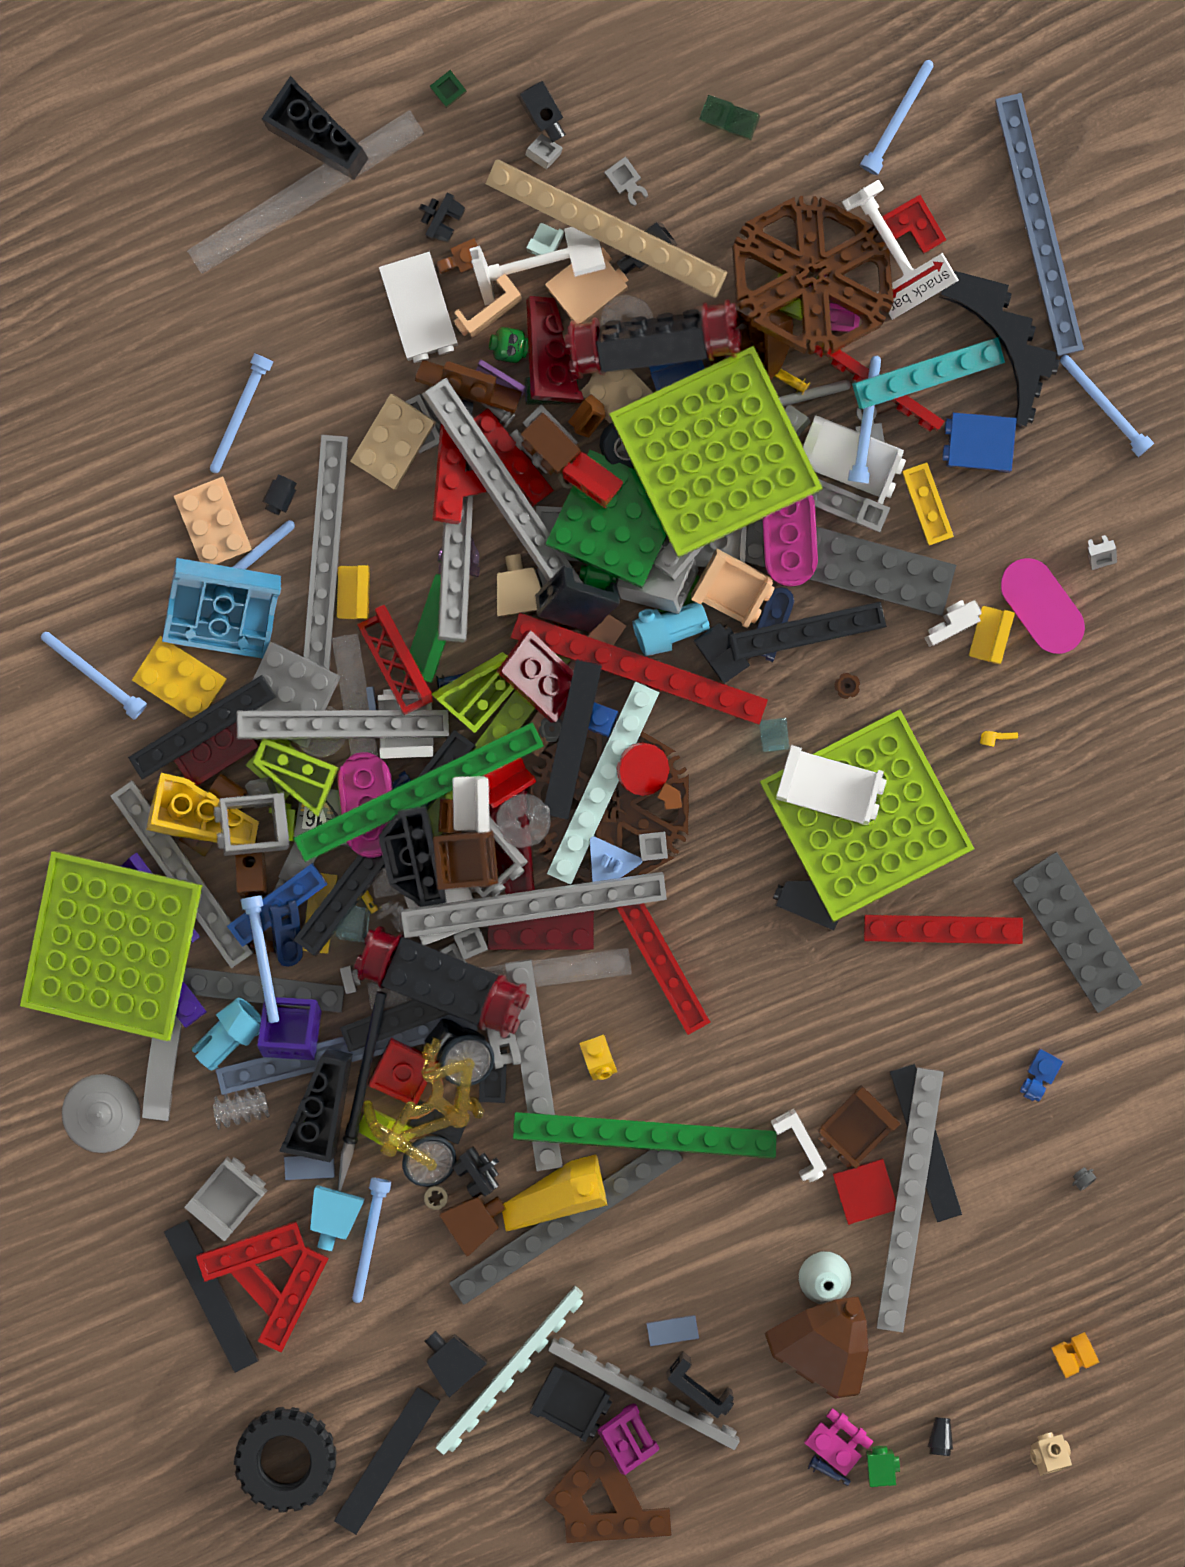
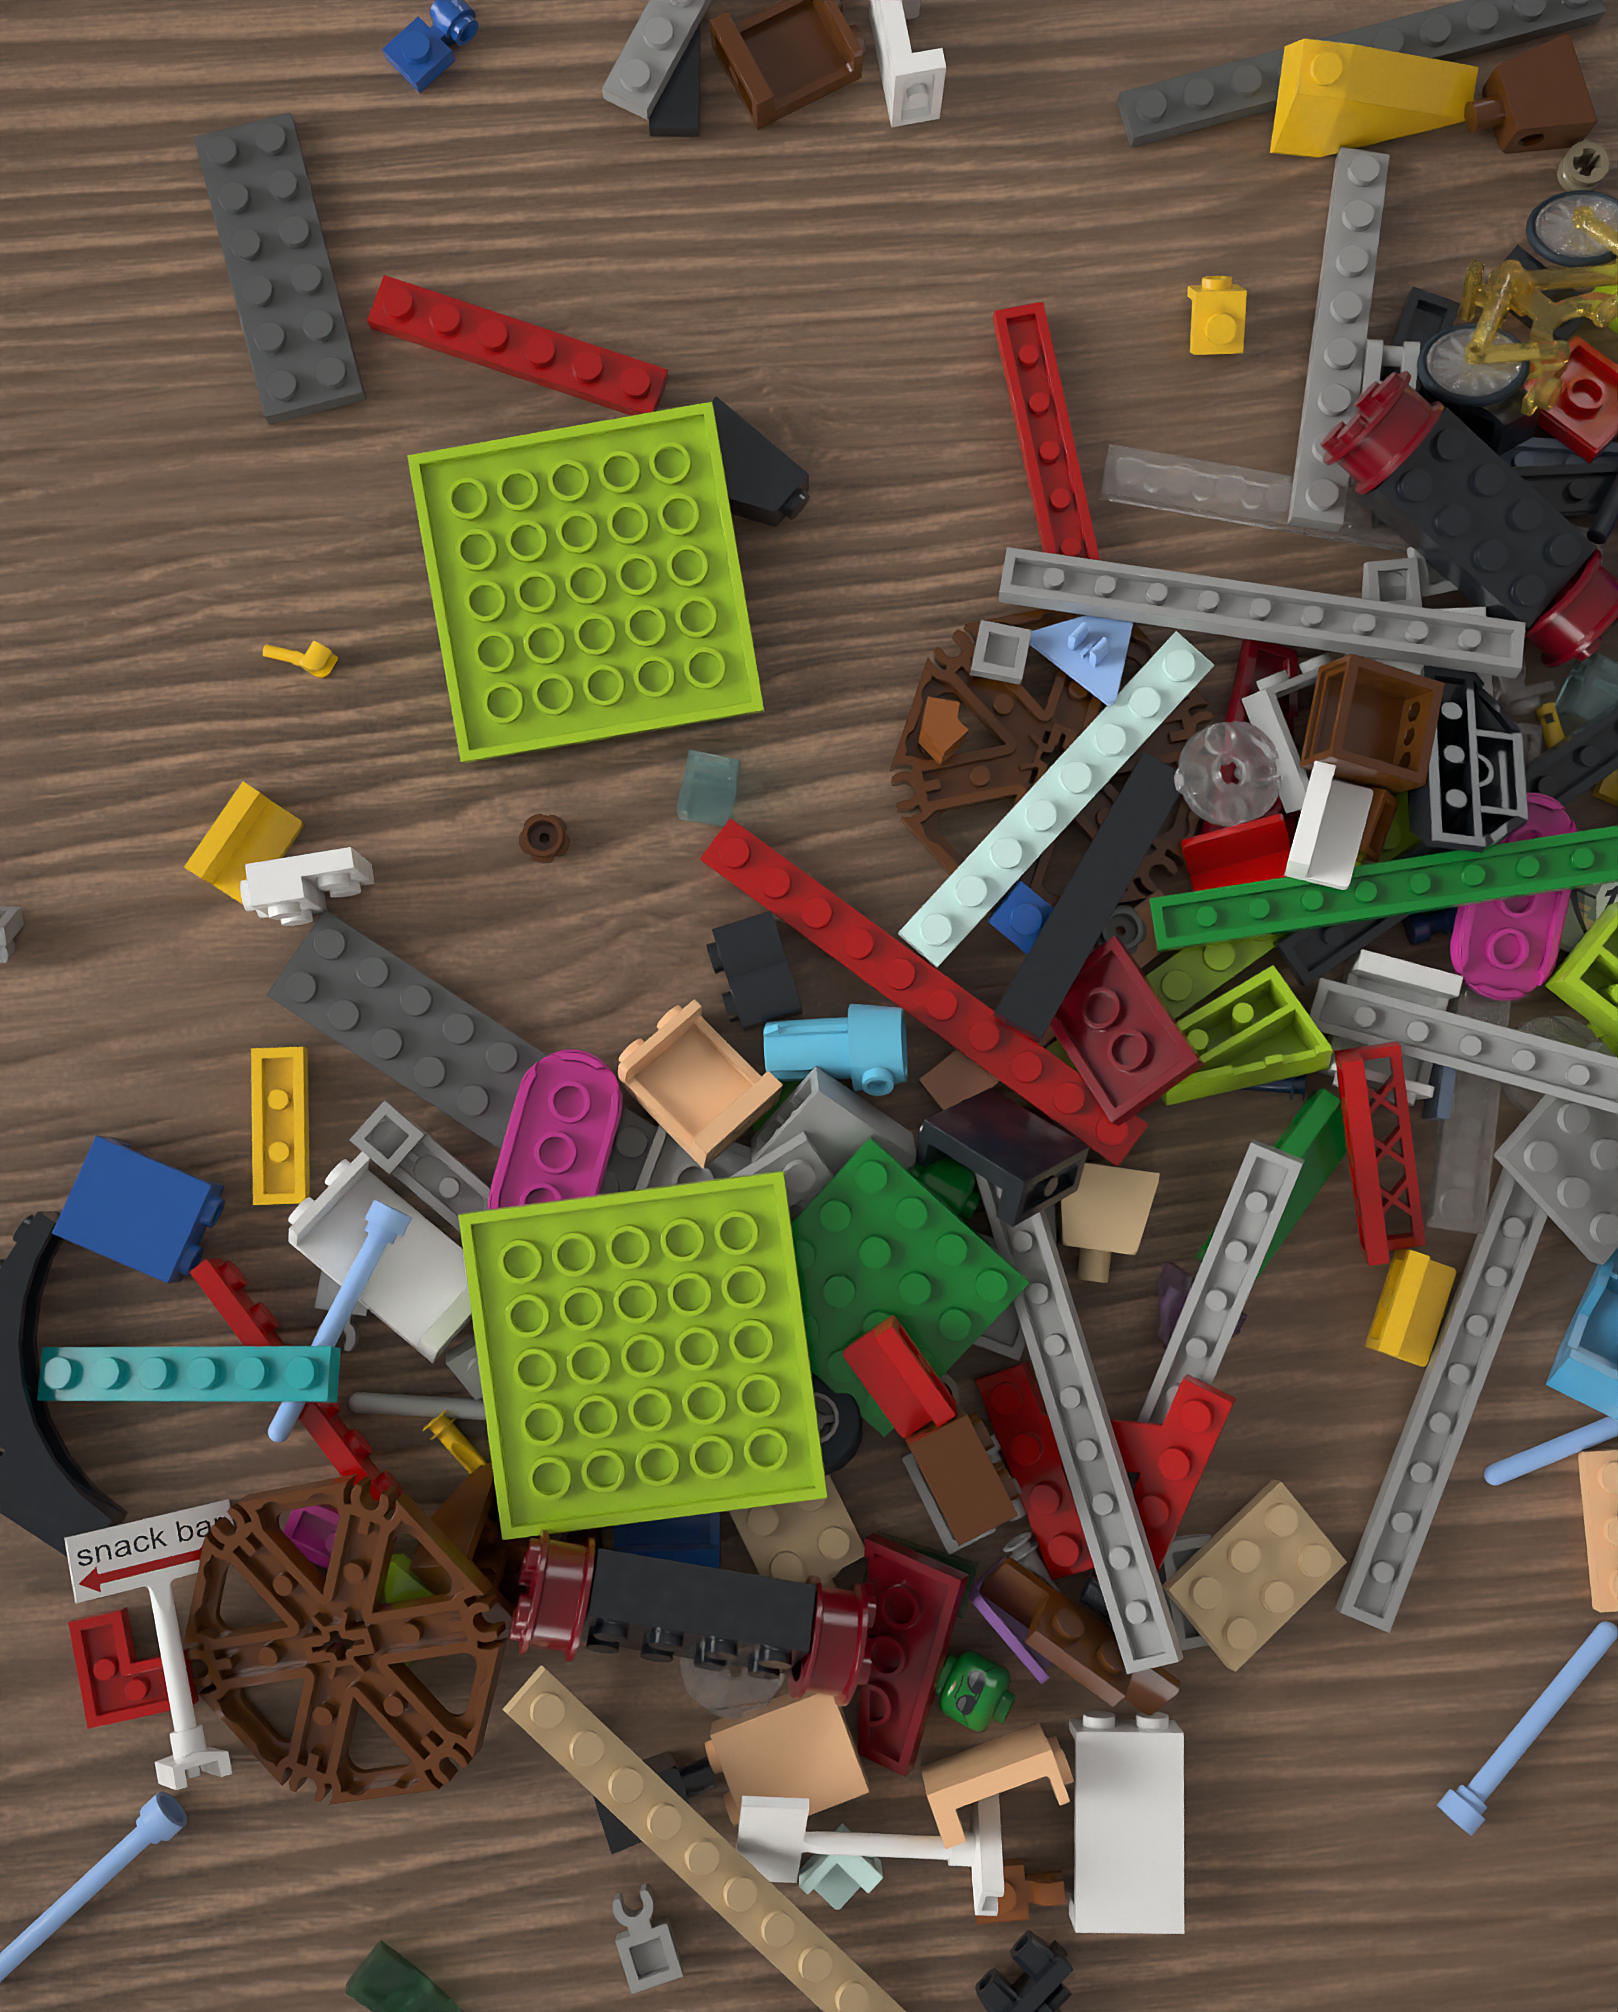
camera: 165 degrees left, 5 degrees down
(279, 495) = (1502, 1540): black brick -> none
(480, 1169) = (1495, 184): black hips -> none
(549, 933) = (1214, 551): dark red wing -> none
(588, 416) = (867, 1502): dark orange piece -> none
(643, 769) = (975, 798): red tile -> none
(644, 1135) = (1182, 149): green plate -> none
(776, 612) = (644, 995): dark blue plate -> none
(807, 631) = (586, 959): black tile -> none
(830, 786) = (633, 652): white panel -> none
(1042, 606) = (135, 869): dark pink tile -> none

